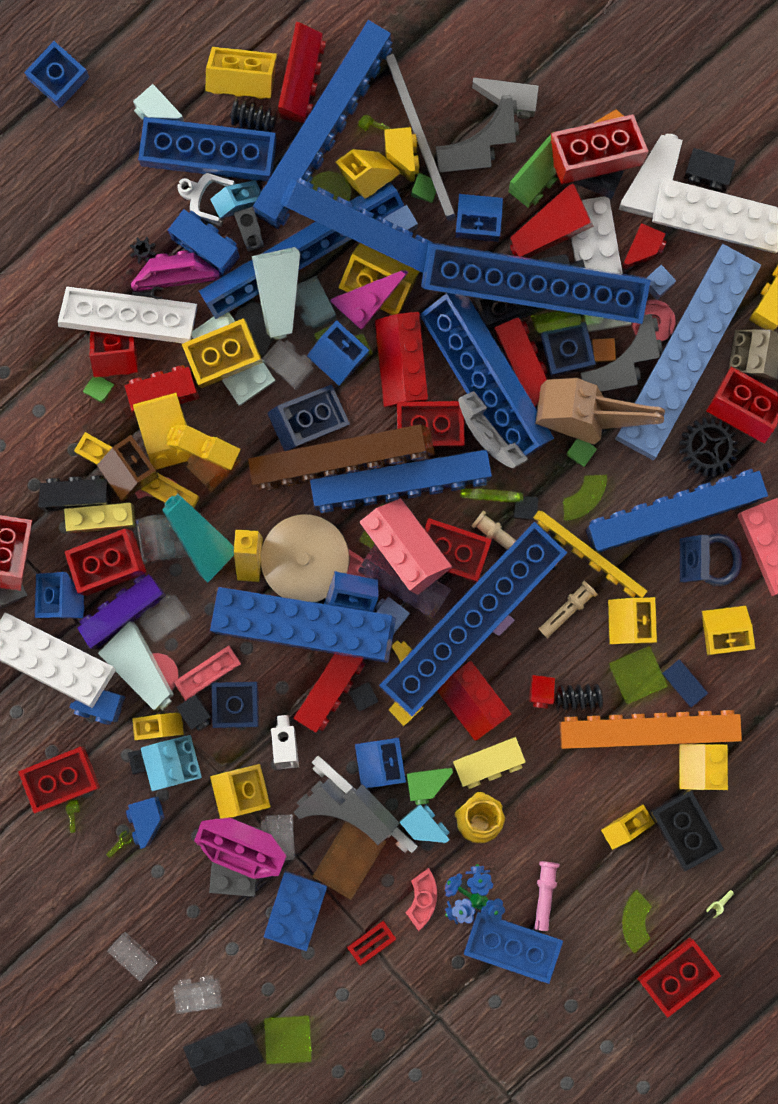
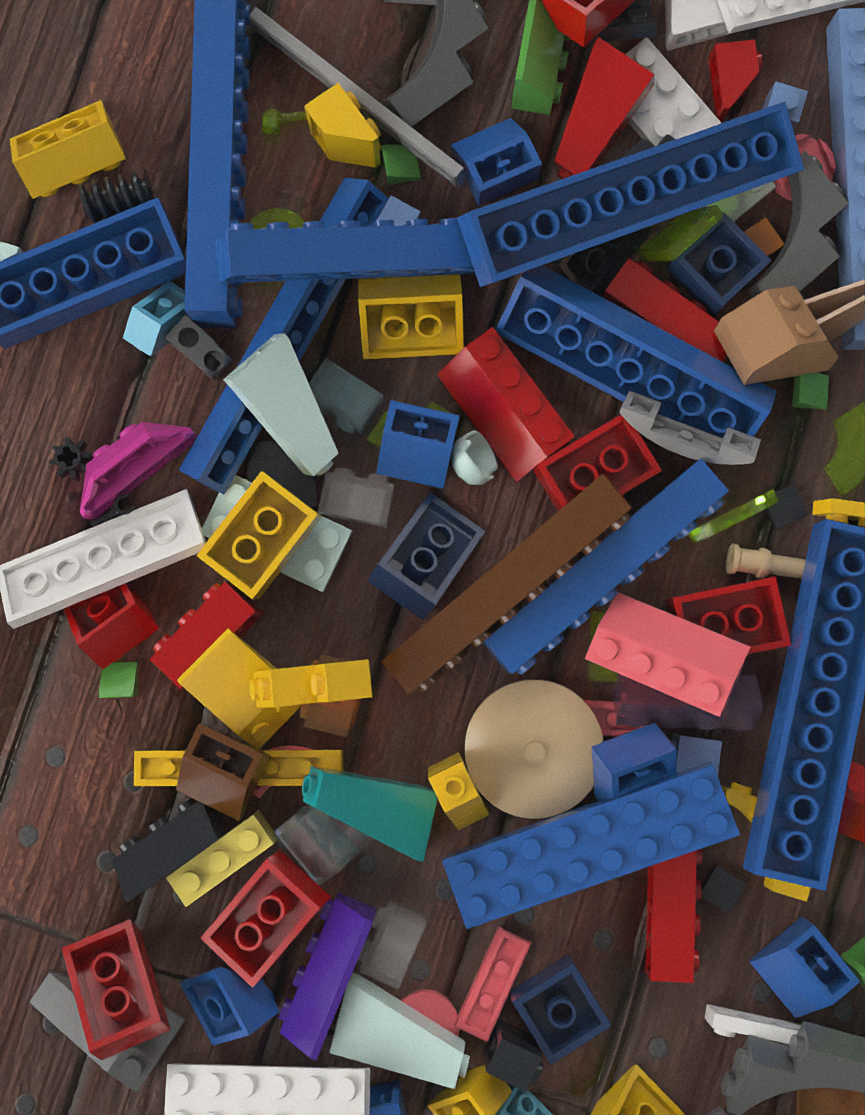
camera: 35 degrees left, 0 degrees up
(196, 191) = (98, 340): white piece -> none
(204, 241) = (146, 397): blue brick -> none
(285, 752) = (667, 1033): white torso -> none
(300, 73) = (147, 101): red slope -> none
(365, 301) = (410, 357): dark pink wing -> none
(366, 171) = (311, 182): yellow slope -> none
(366, 379) = (473, 458): none -> light aqua hair

